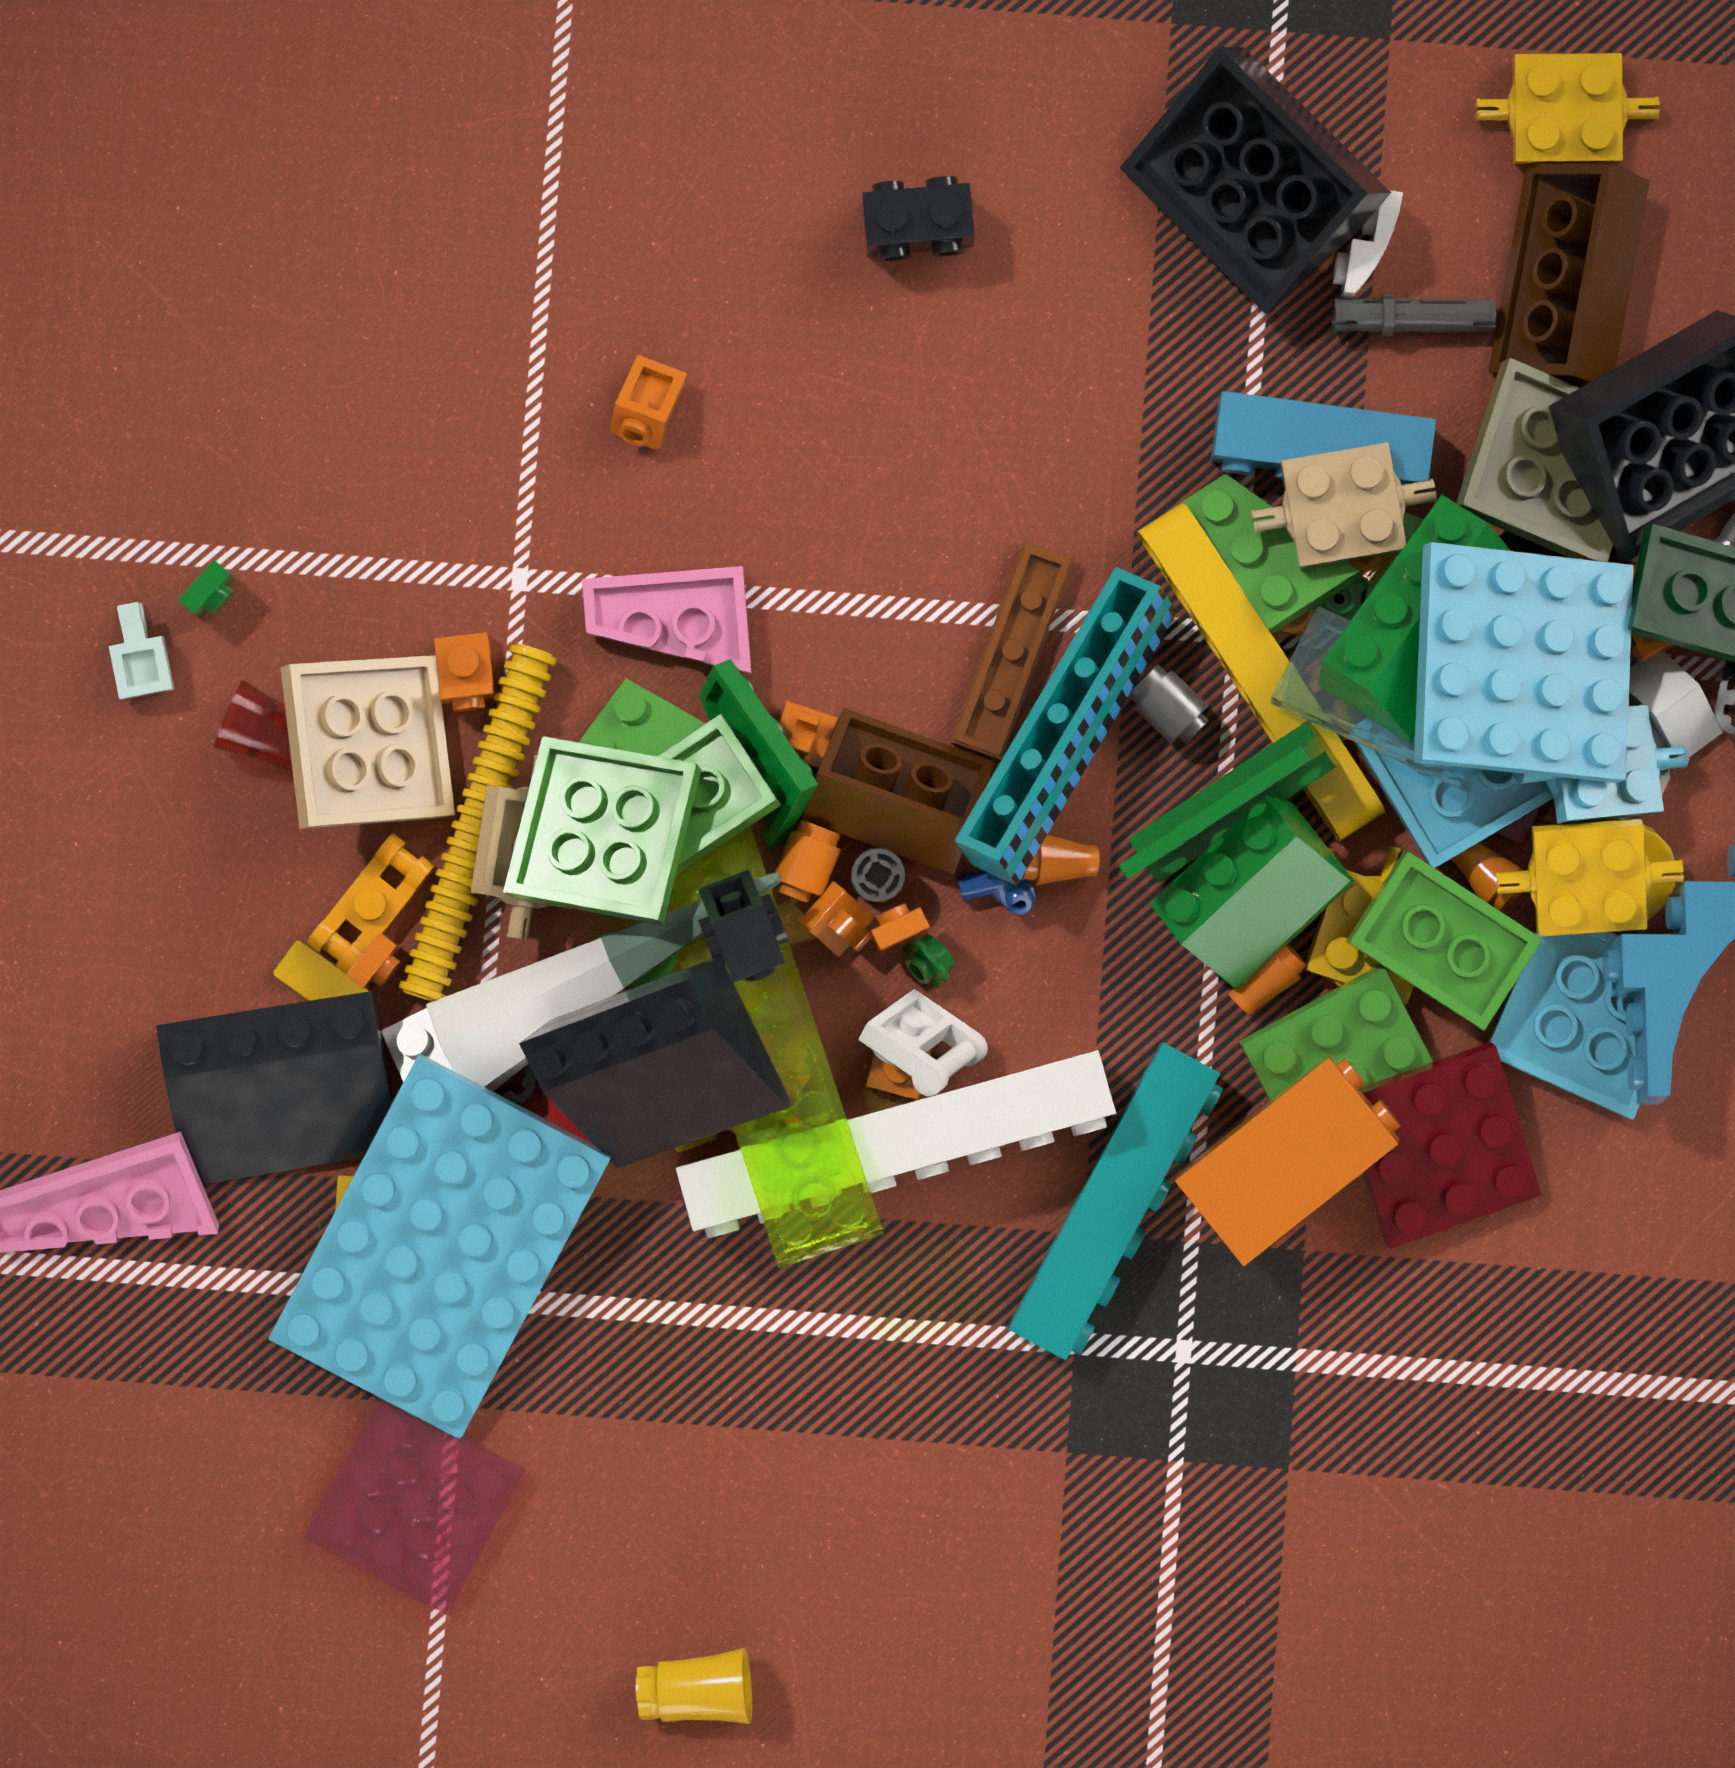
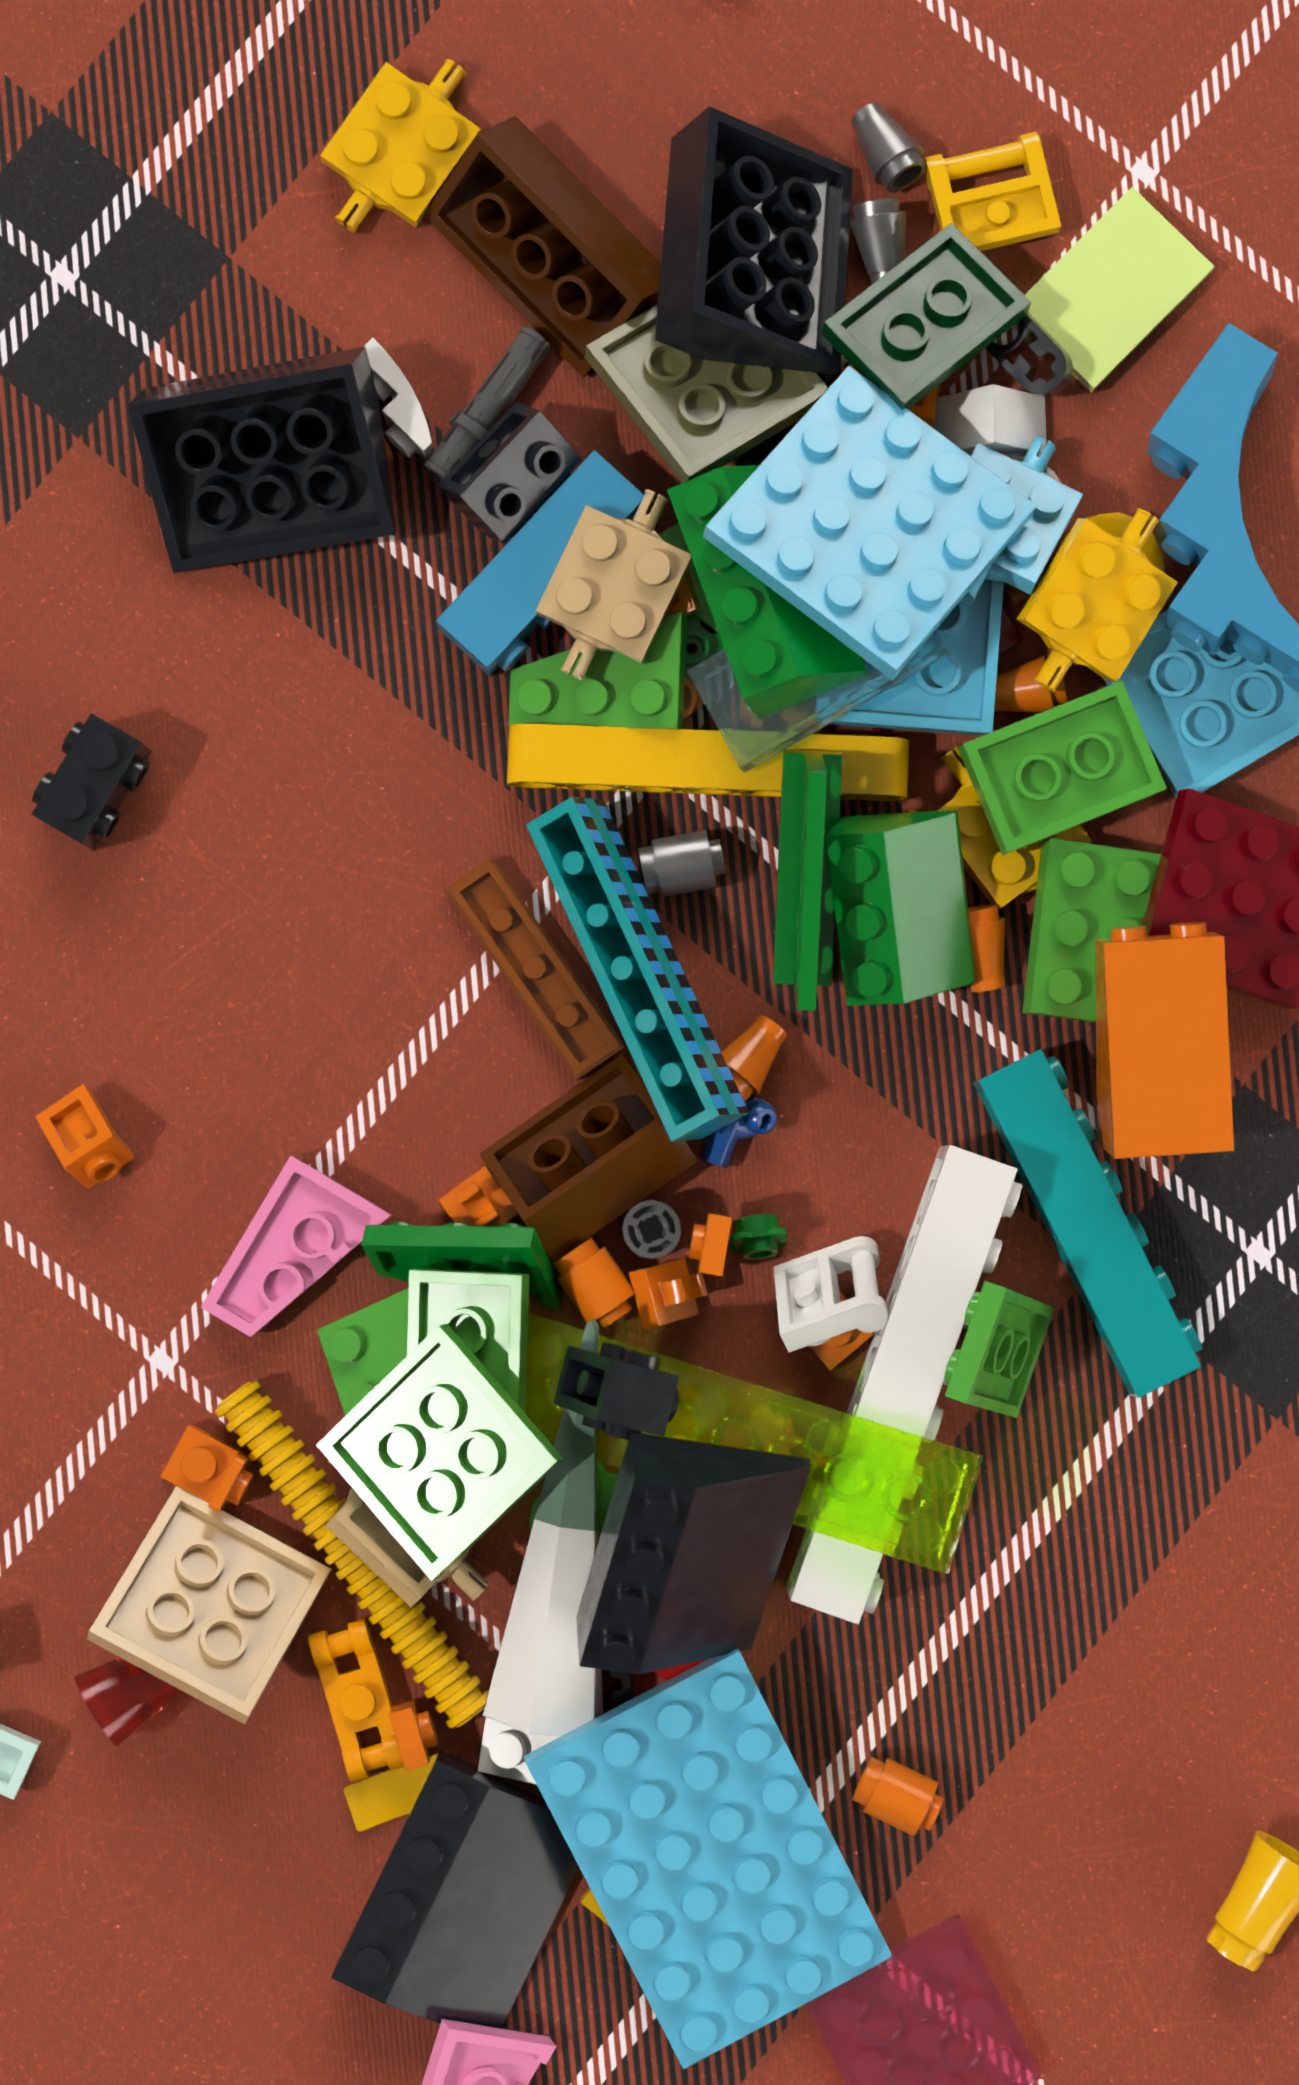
camera: 55 degrees left, 0 degrees up
(583, 1359) = (898, 1796): none -> orange brick
(971, 1196) = (998, 1349): none -> bright green plate
(1374, 368) = (510, 472): none -> black brick

